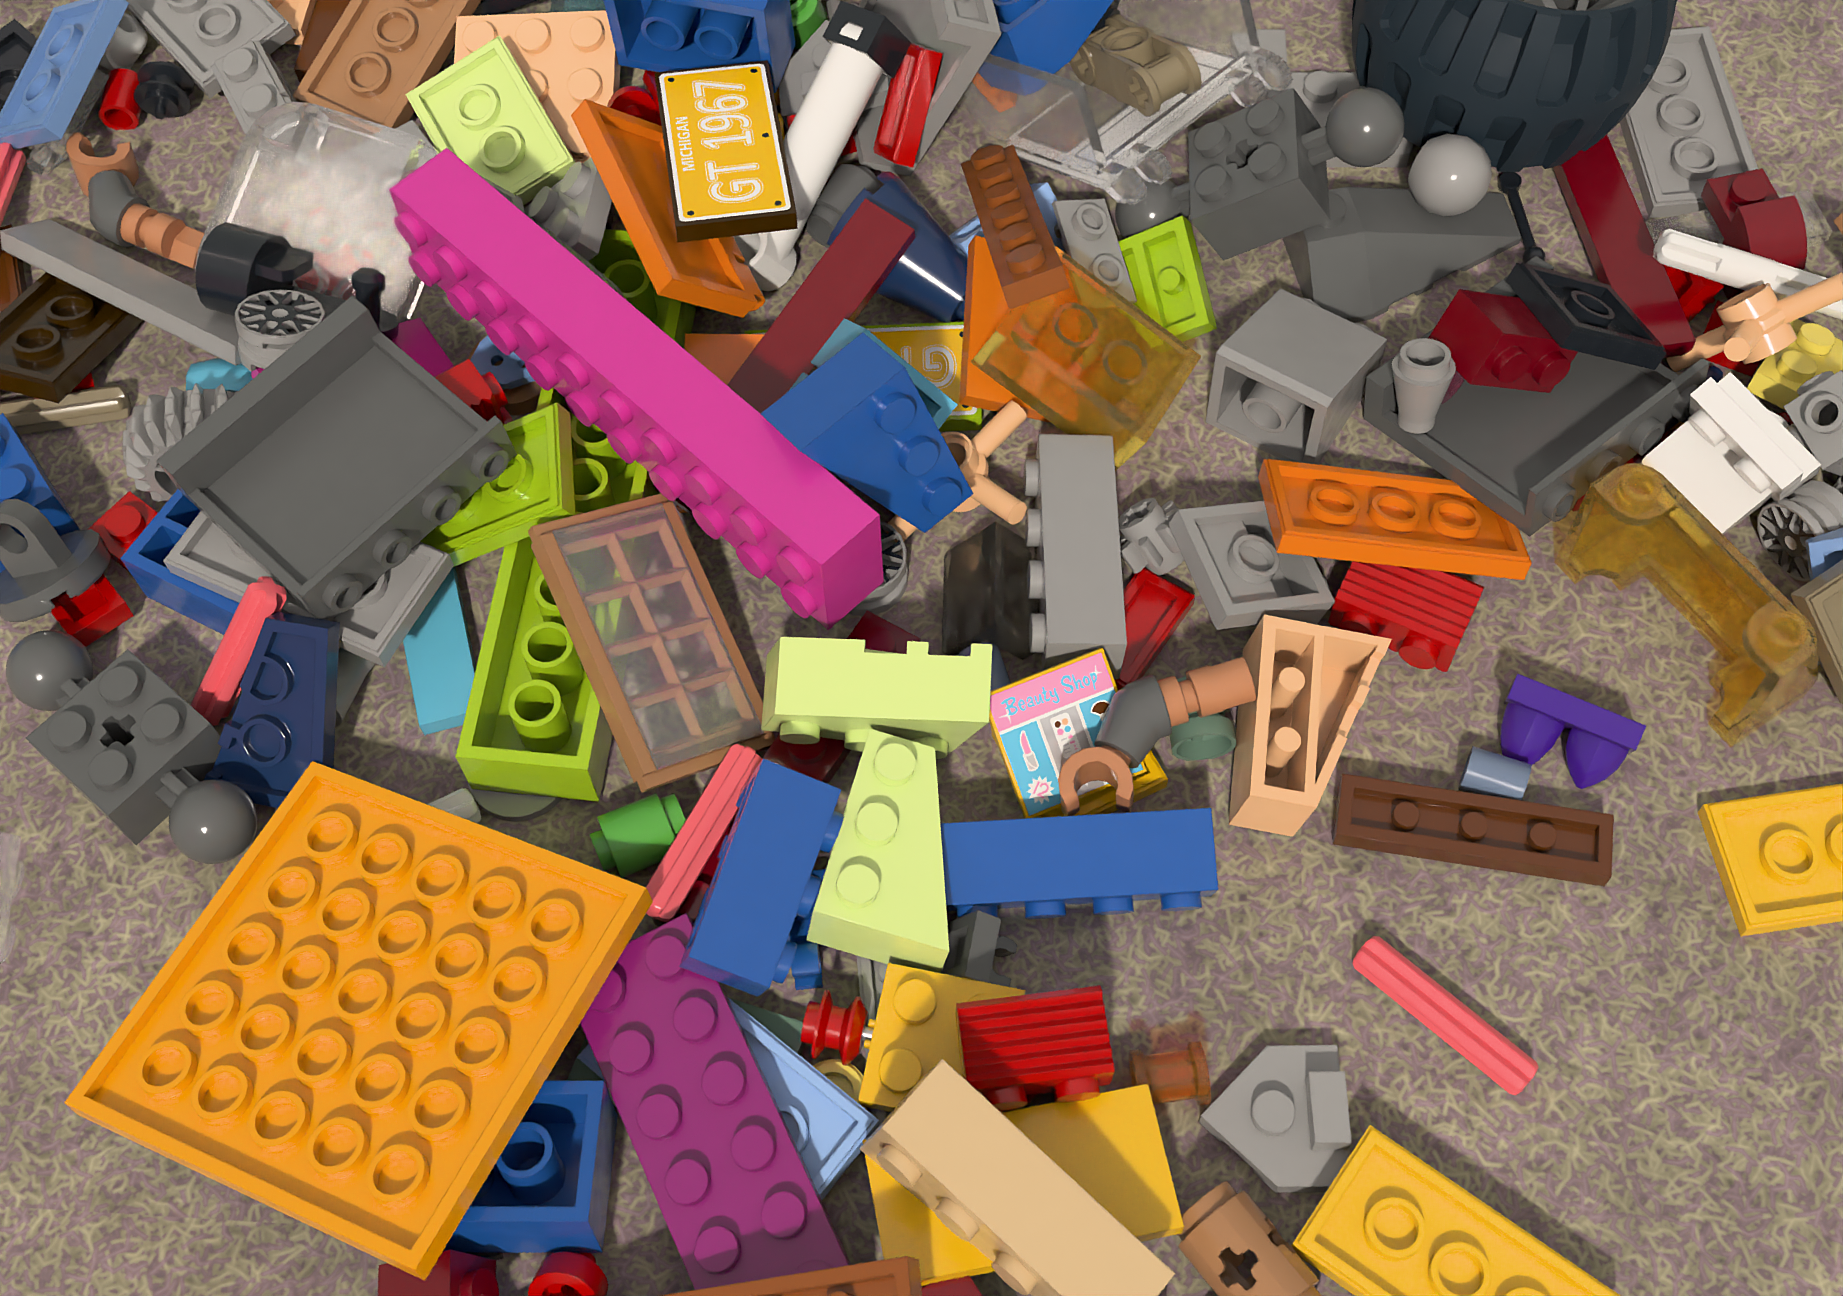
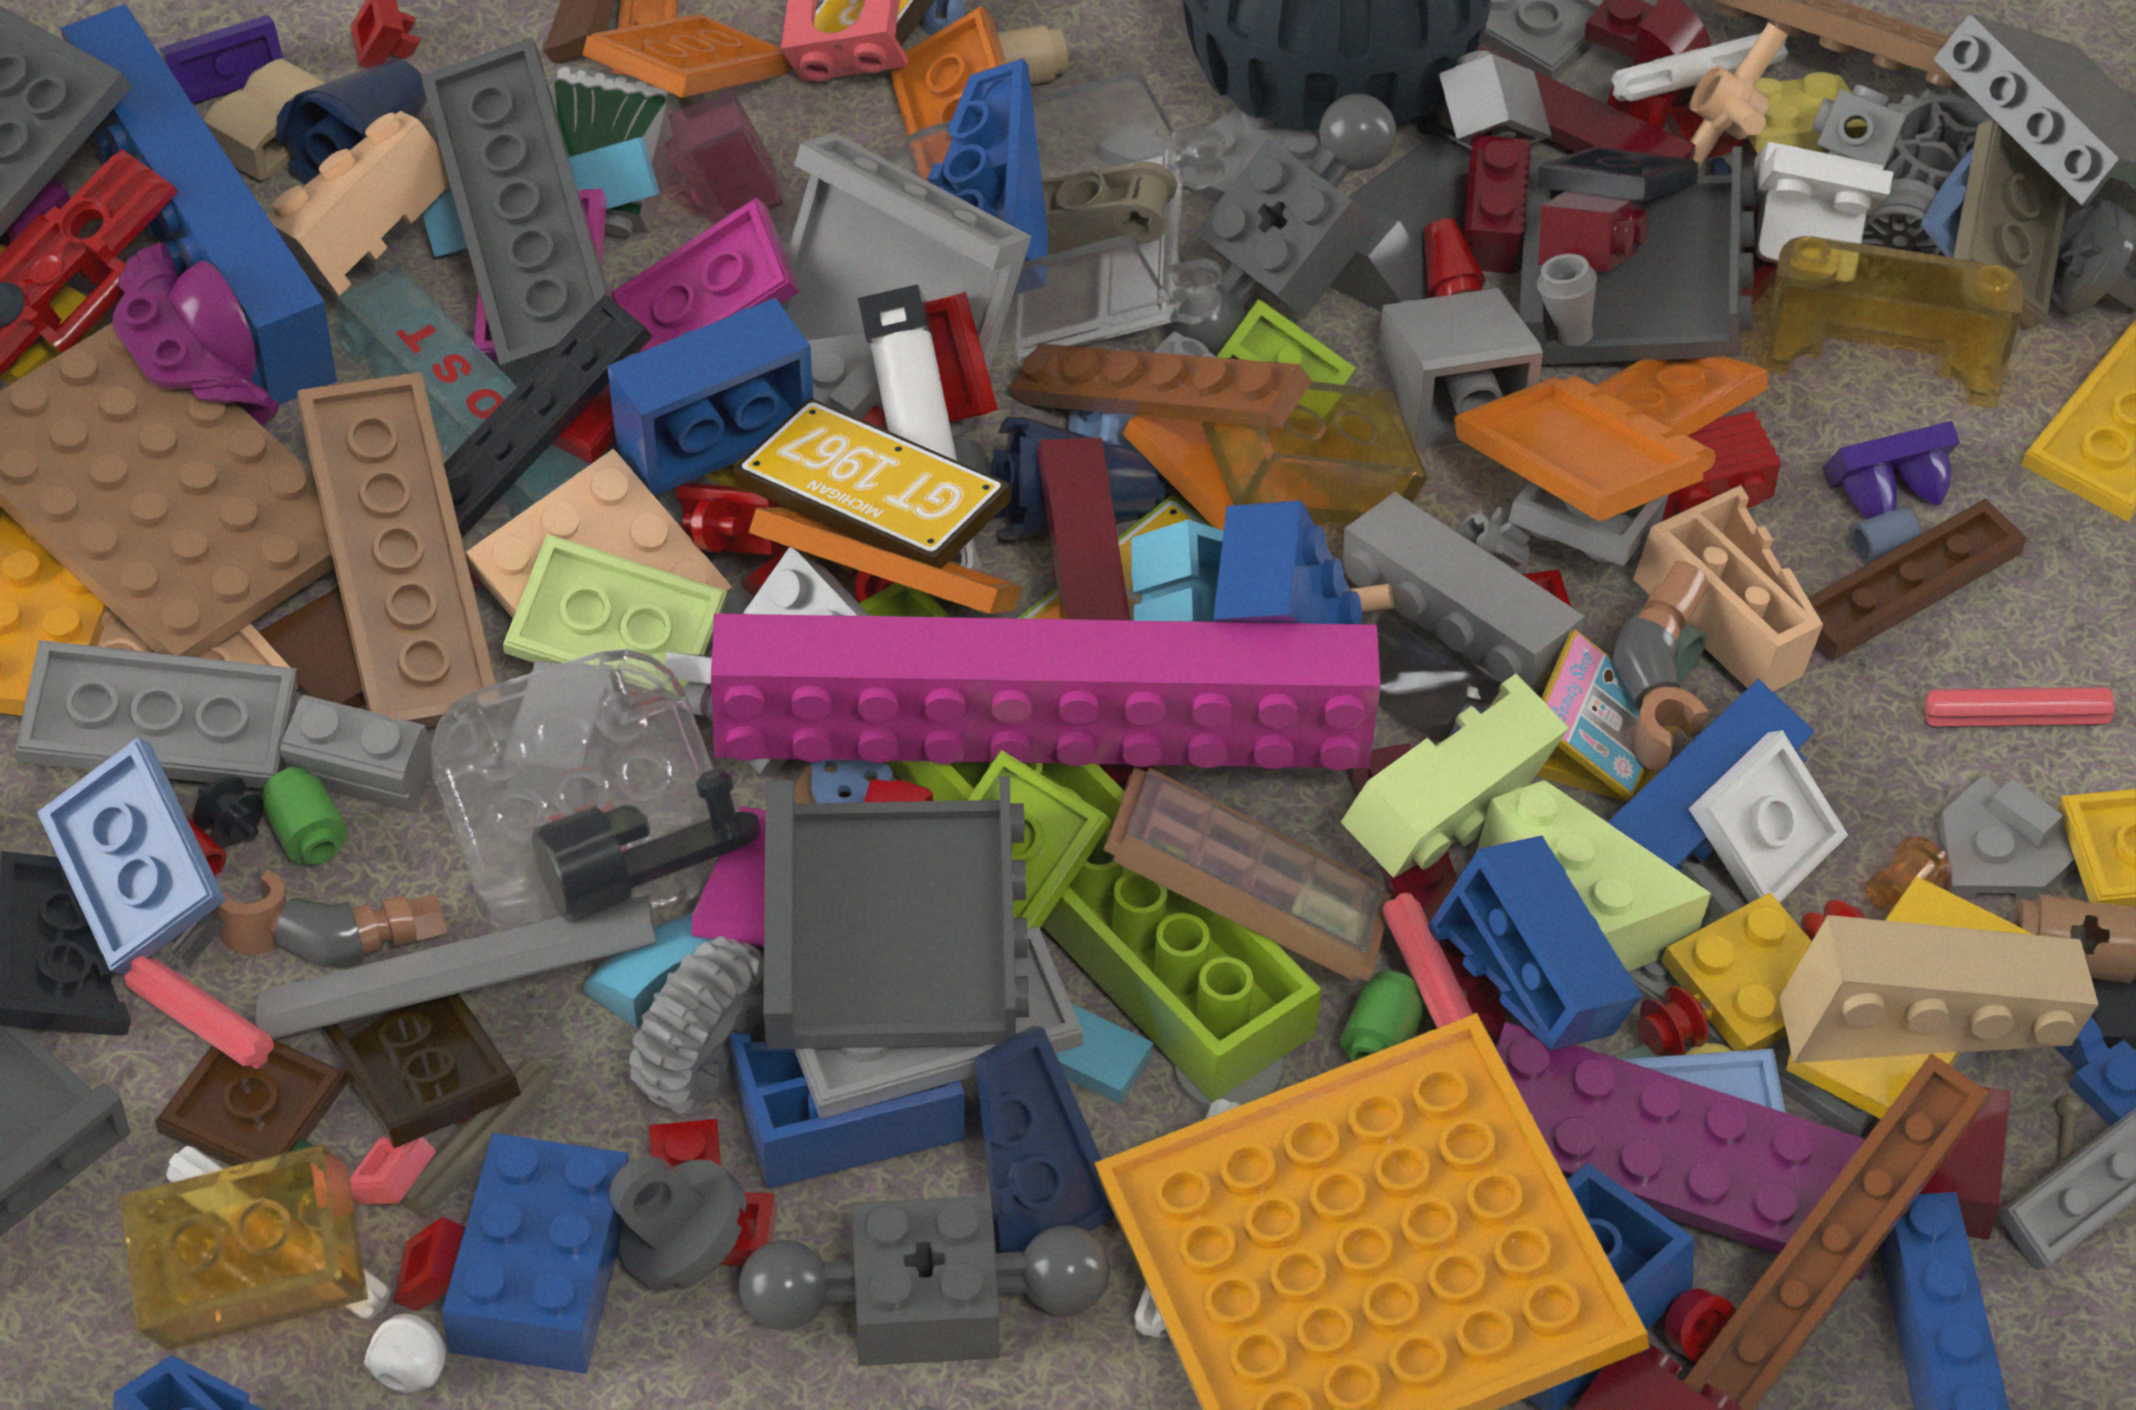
camera: 50 degrees left, 10 degrees down
(196, 126) = (303, 816): none -> bright green brick
(224, 675) = (948, 1116): coral axle -> none
(273, 329) = (699, 872): light grey wheel -> none
(1036, 1046) = (1837, 880): red brick -> none
(1100, 928) = (1768, 820): none -> white tile
(1276, 511) = (1585, 446): none -> orange hinge
(1380, 294) = (1449, 260): none -> red cone
(1450, 175) = (1422, 138): light grey piece -> none
(1471, 263) = (1497, 202): none -> dark red brick
(1549, 191) = (1494, 99): none -> light grey brick

